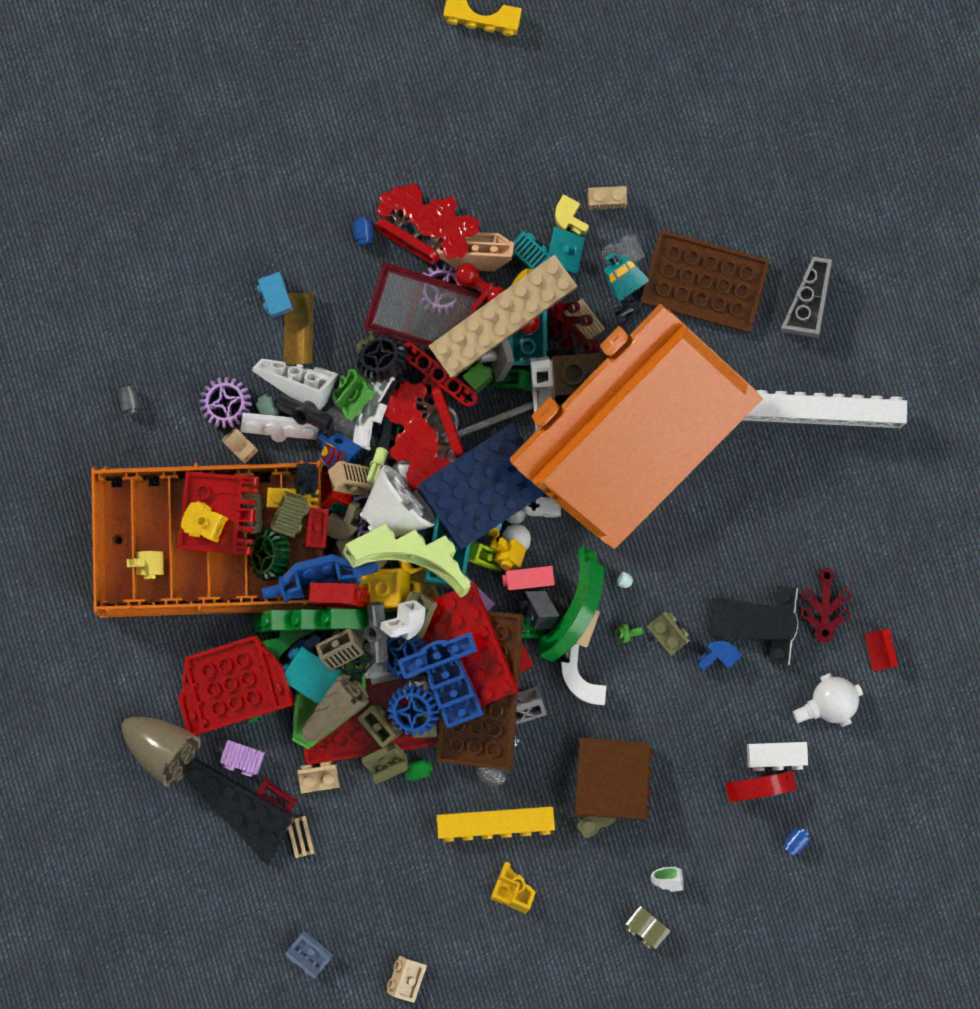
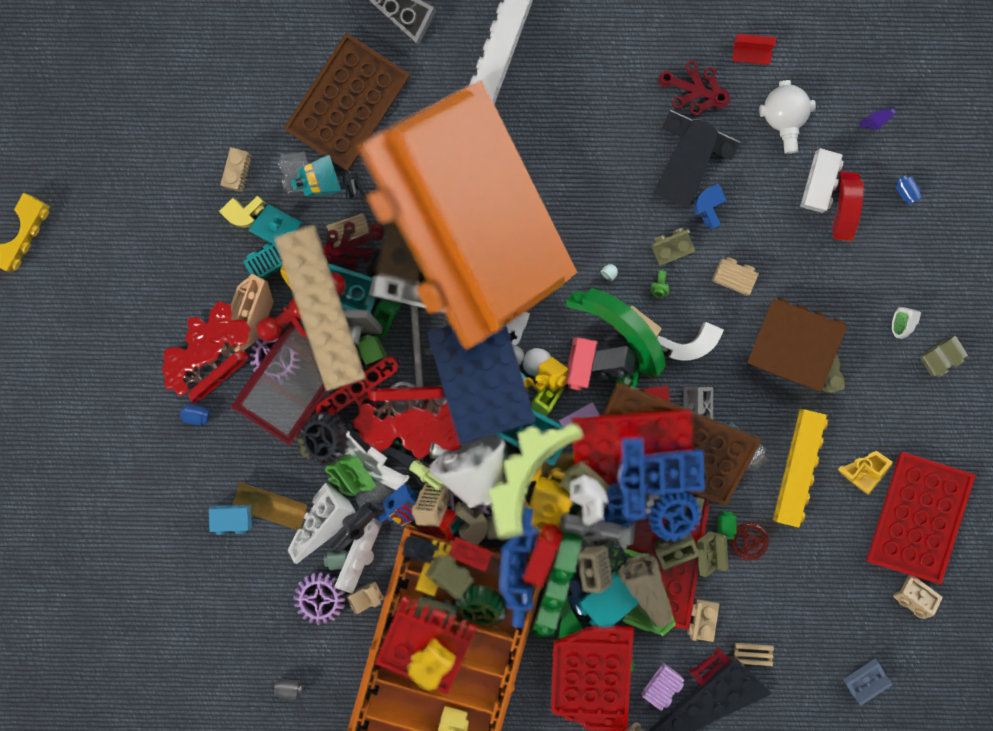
camera: 65 degrees left, 5 degrees up
(394, 795) = (756, 541): none -> clear red piece
(484, 956) = (920, 517): none -> red plate
(659, 701) = (735, 276): none -> tan brick
(852, 787) = (878, 118): none -> dark purple slope

